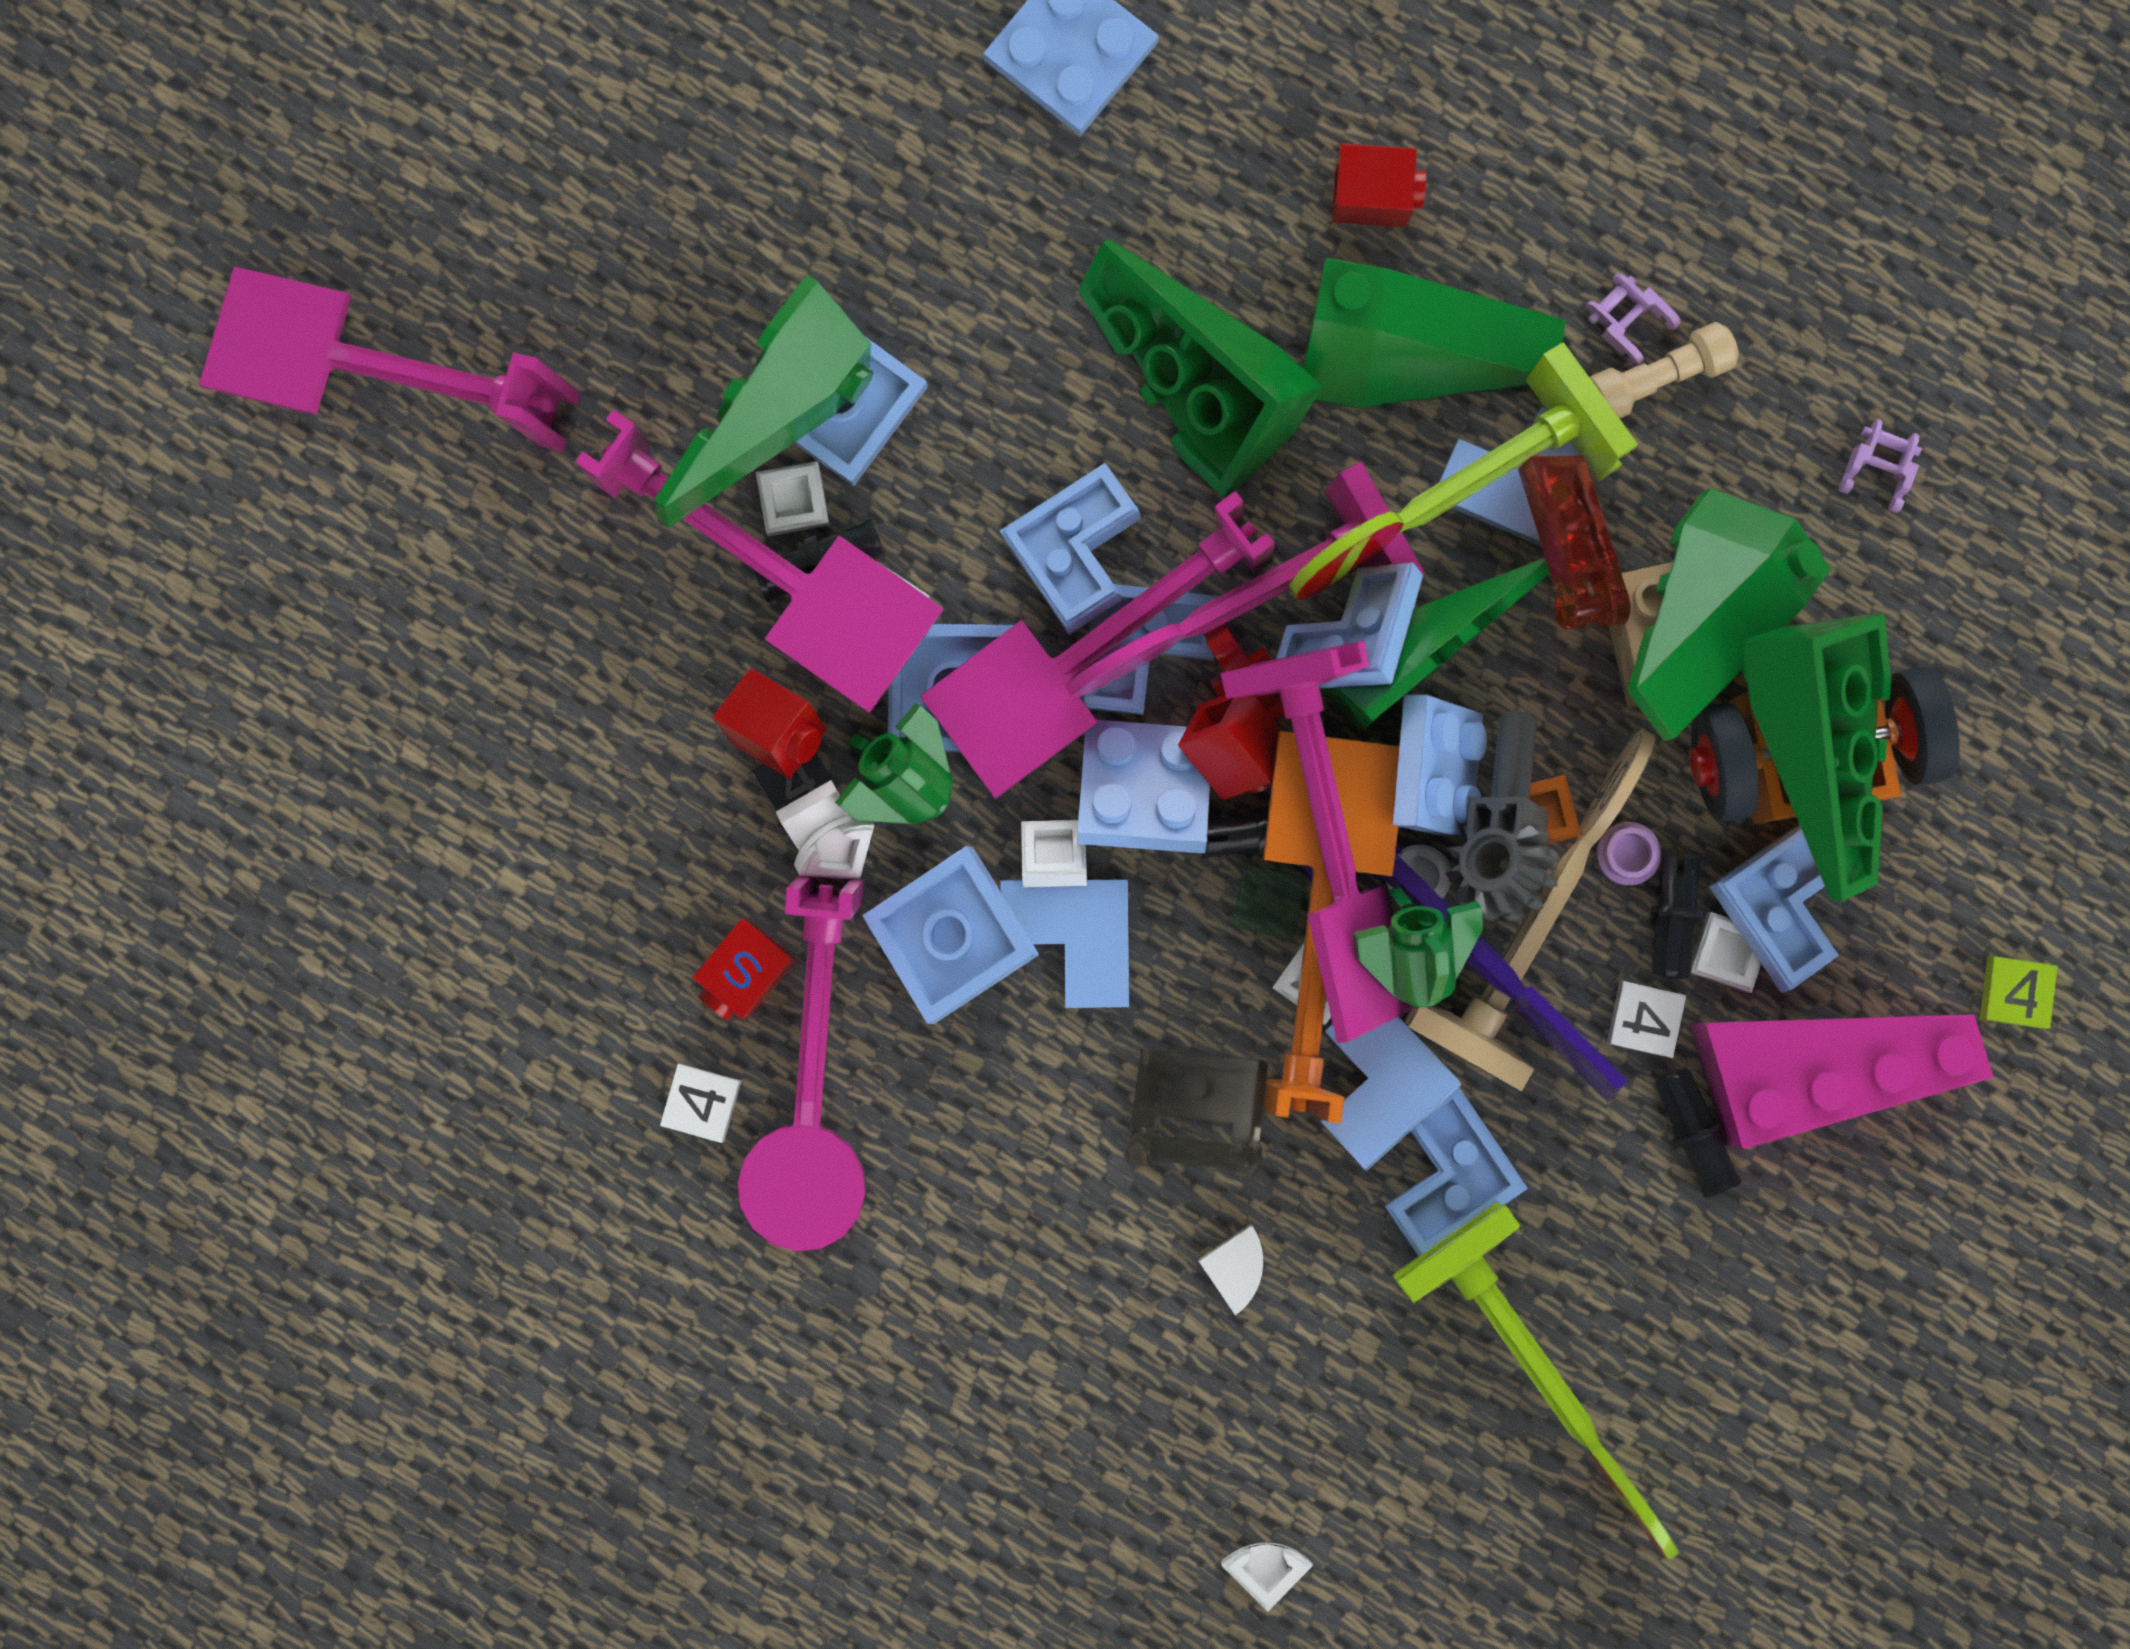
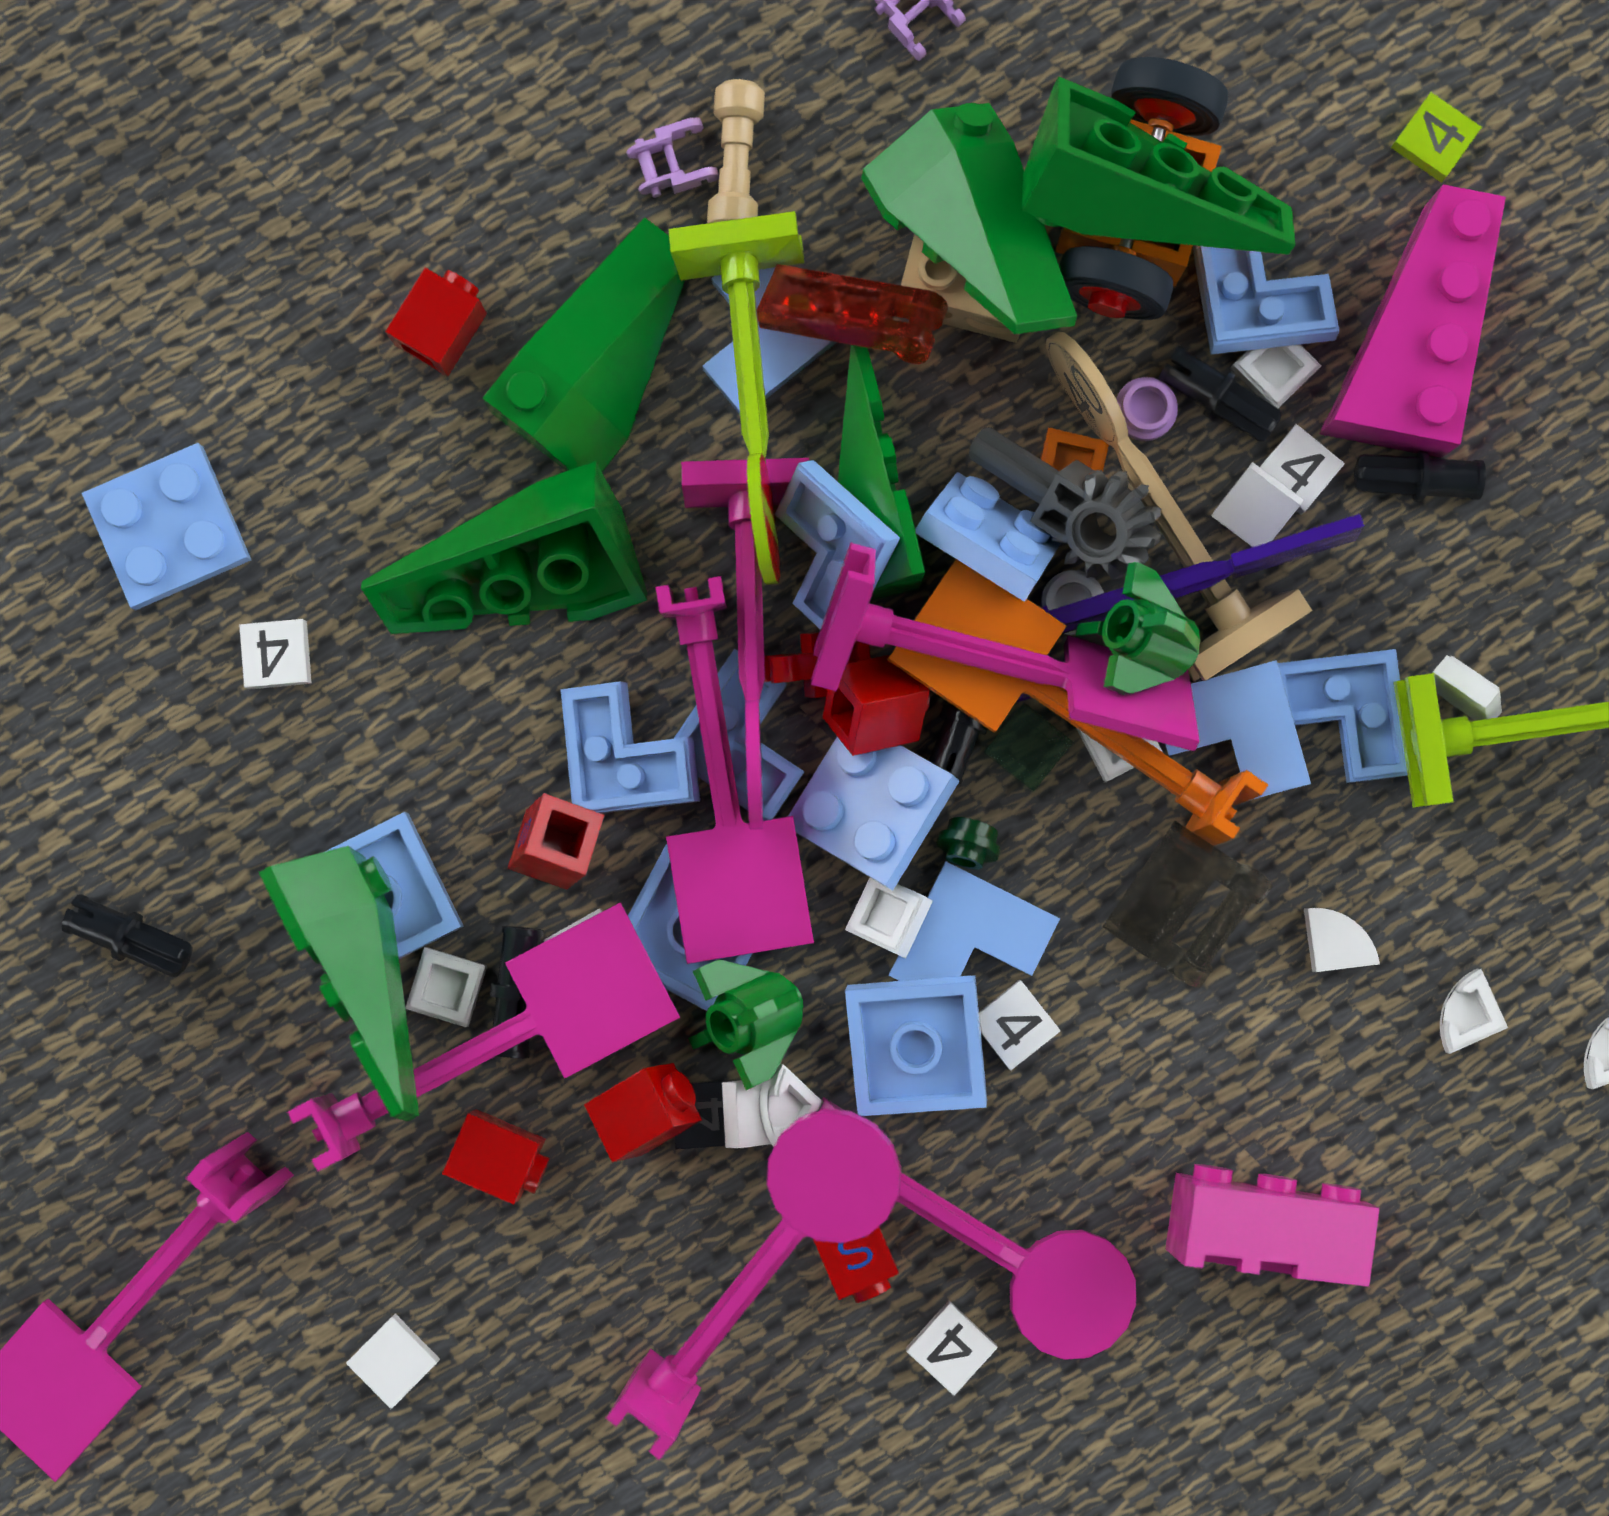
camera: 65 degrees left, 0 degrees up
(445, 620) = (393, 1361): none -> white tile
(666, 617) = (497, 1157): none -> red brick
(696, 200) = (127, 936): none -> black axle
(789, 910) = (830, 1182): none -> dark pink piece
(951, 1334) = (1272, 1226): none -> dark pink wedge
(967, 525) = (555, 841): none -> red brick
(1008, 199) = (275, 654): none -> white tile
(1014, 1016) = (1016, 1025): none -> white tile
(1154, 891) = (969, 843): none -> dark green plate
(1233, 1420) = (1470, 1013): none -> white tile
(1524, 1269) = (1467, 689): none -> white tile
(1592, 997) = (1257, 507): none -> white tile

